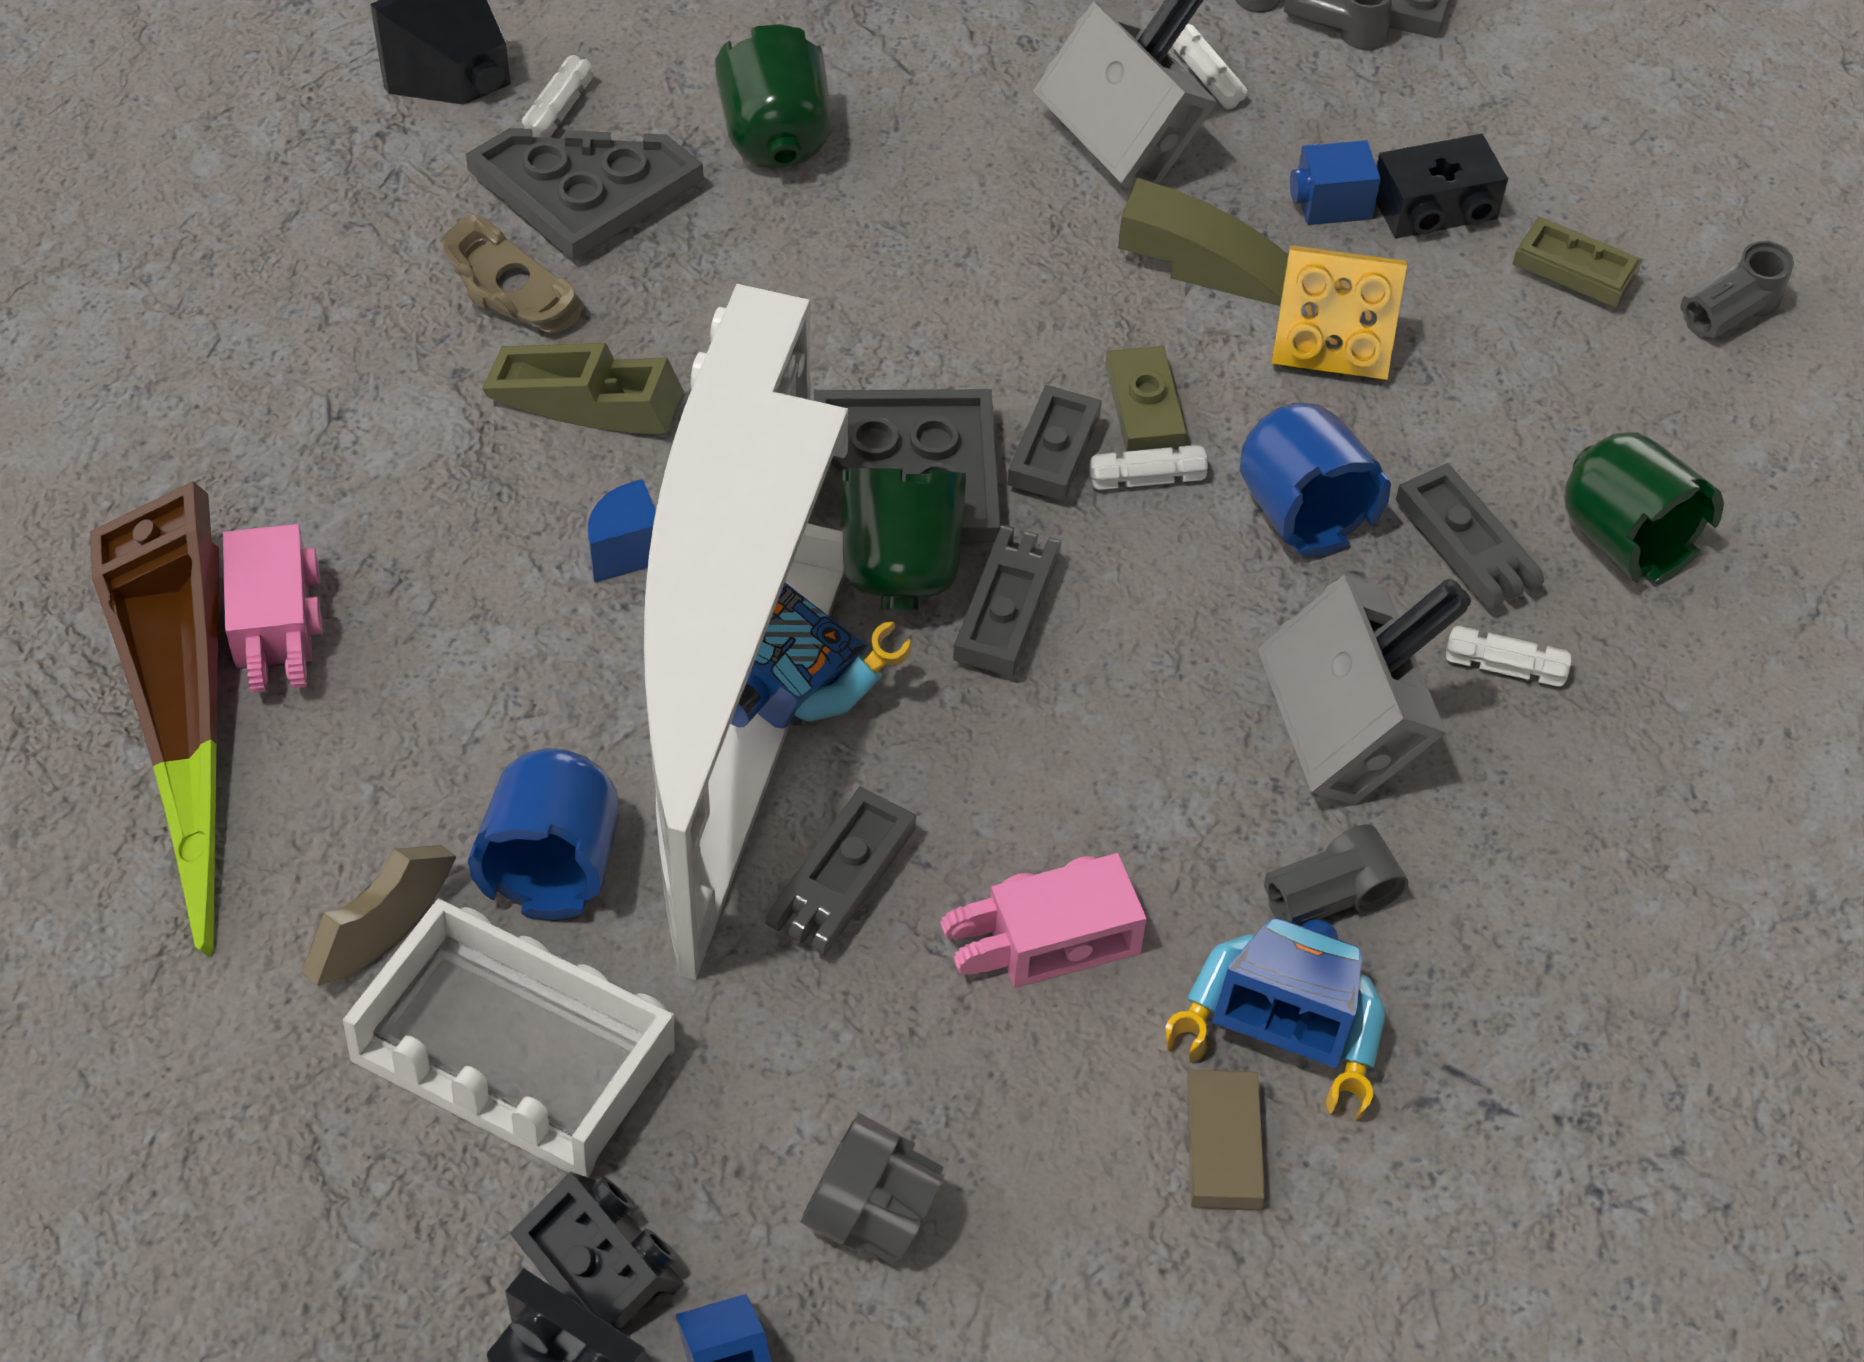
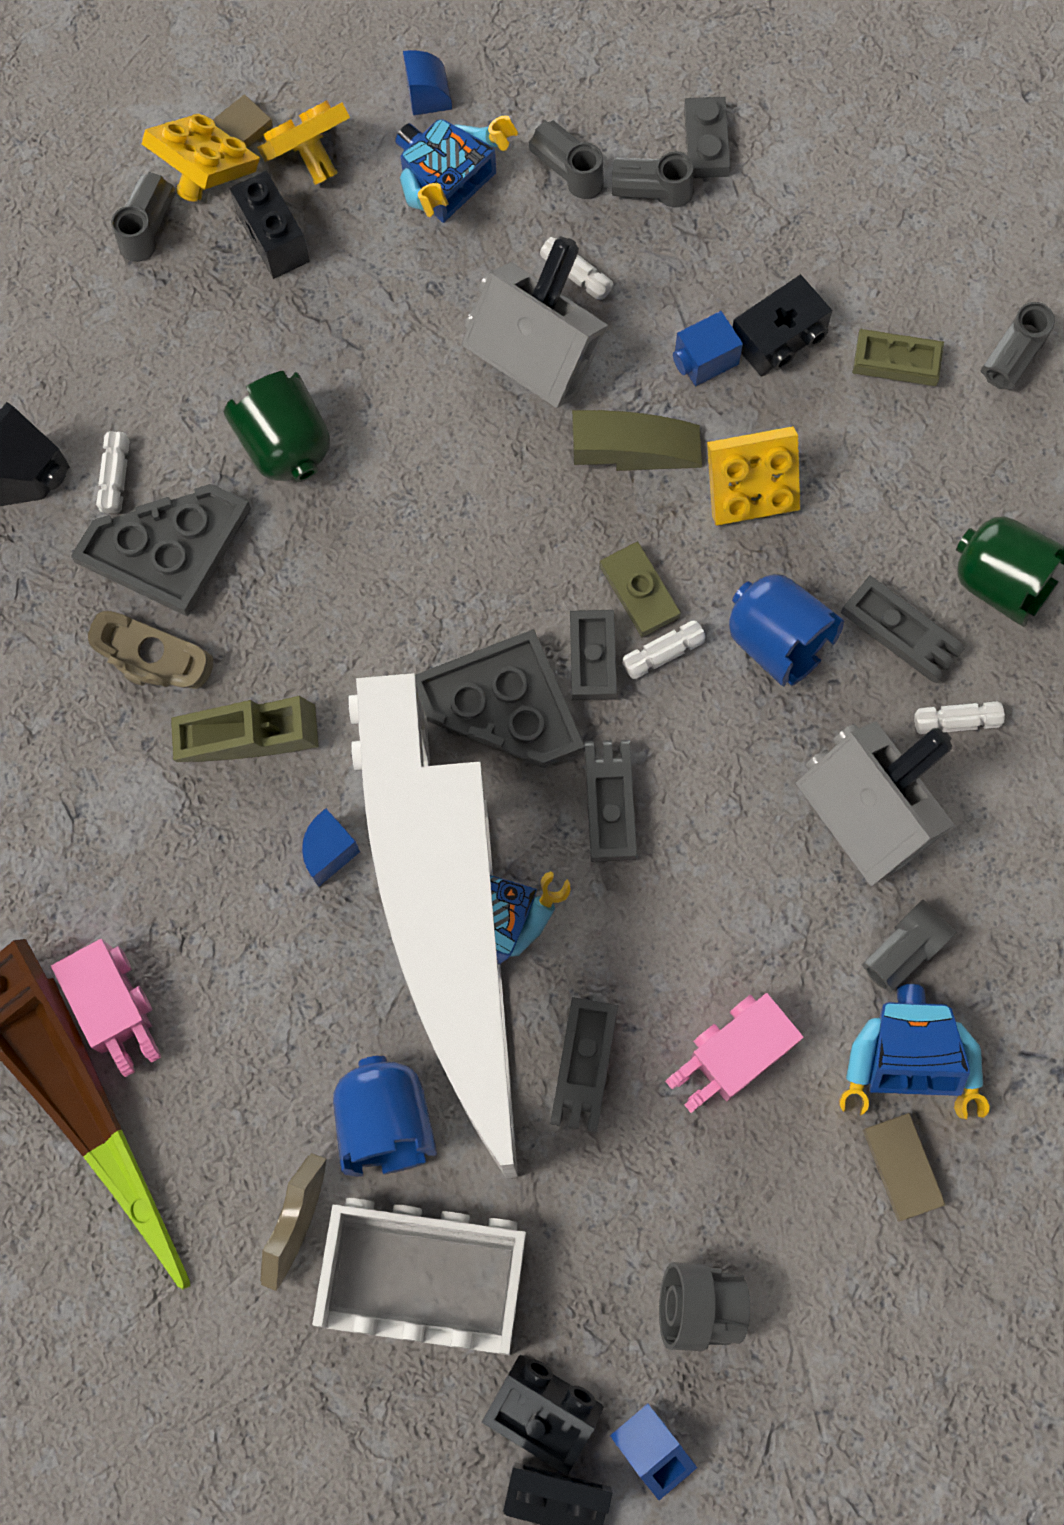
camera: 15 degrees left, 20 degrees up
(901, 534) = (526, 785): dark green cylinder -> none

